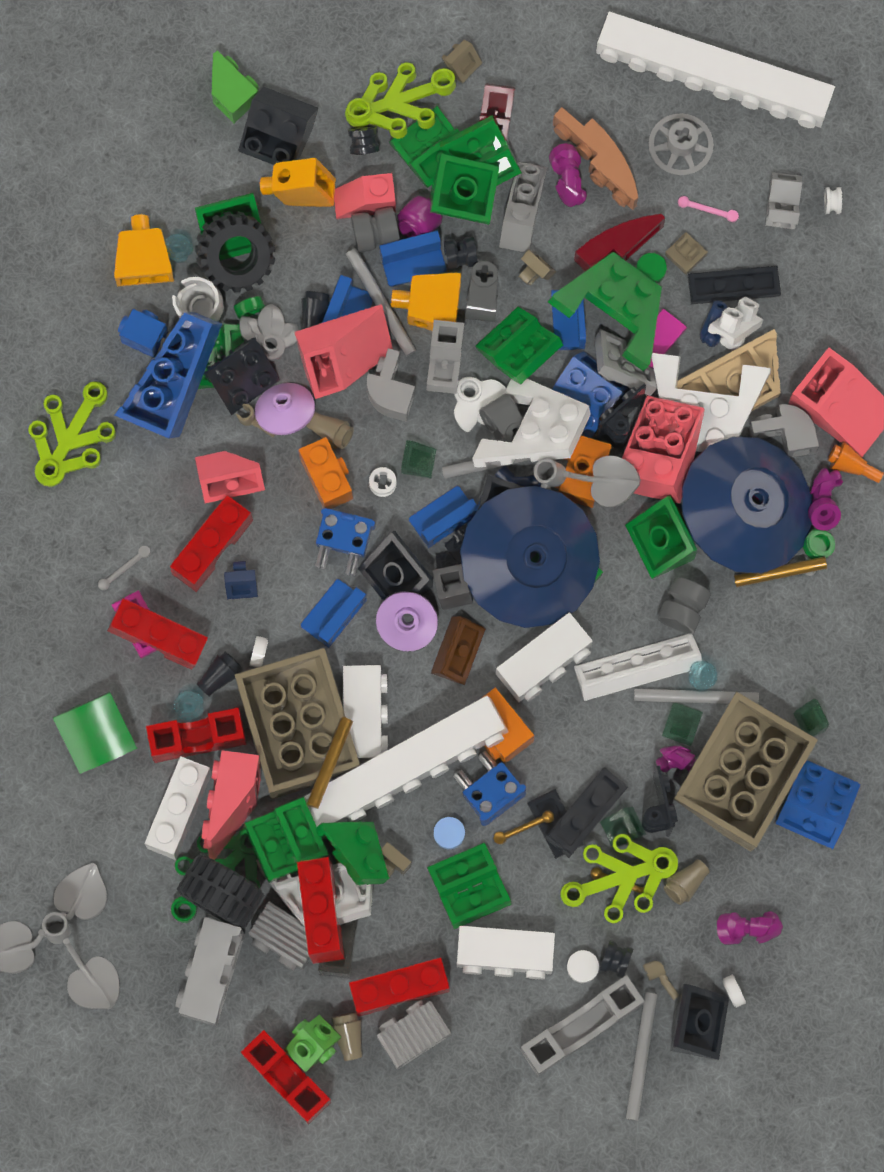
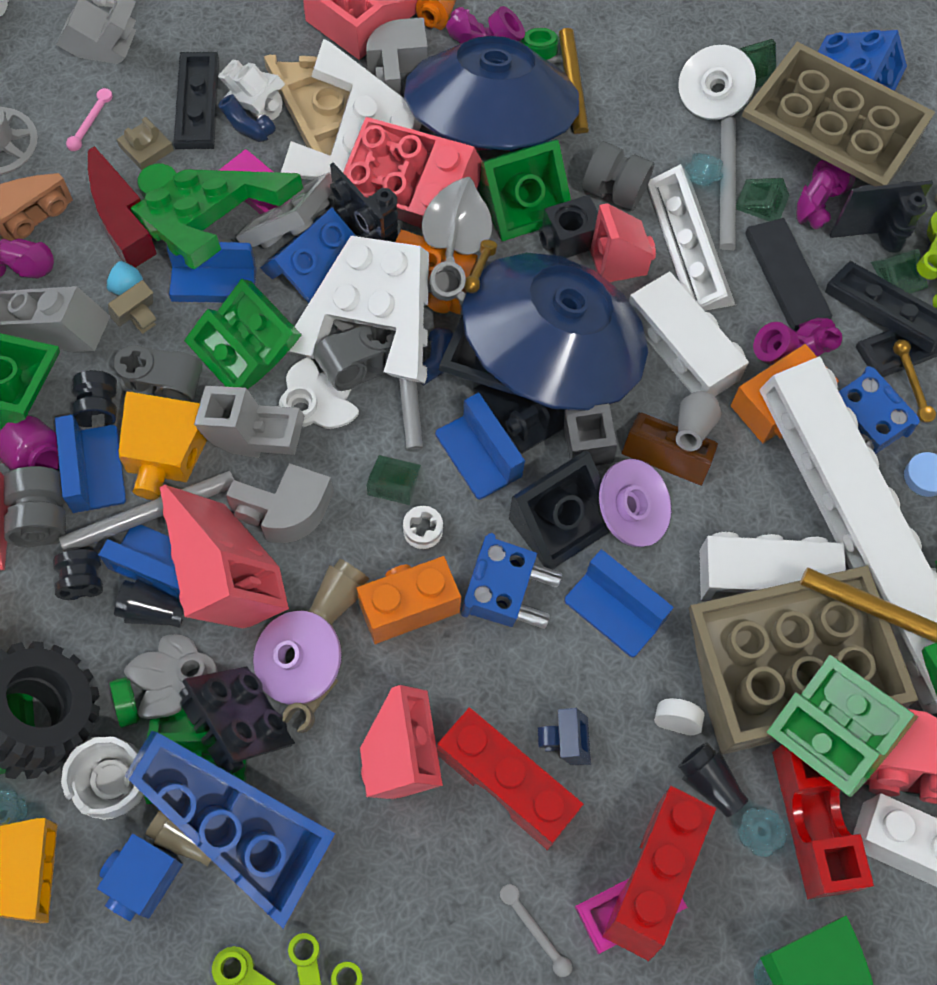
camera: 90 degrees left, 10 degrees down
(244, 733) = (842, 725): none -> slope
(331, 264) = (77, 574): none -> black wheel
(475, 664) = (697, 418): none -> light grey cone
(552, 753) = (778, 340): none -> magenta arm
(560, 258) = (122, 278): none -> medium azure hinge
(593, 505) = (487, 249): none -> pearl gold hinge
(613, 739) = (787, 272): none -> black tile
(615, 607) = (620, 245): none -> coral slope
(636, 585) = (573, 215): none -> black brick
(784, 673) = (714, 66): none -> white dish

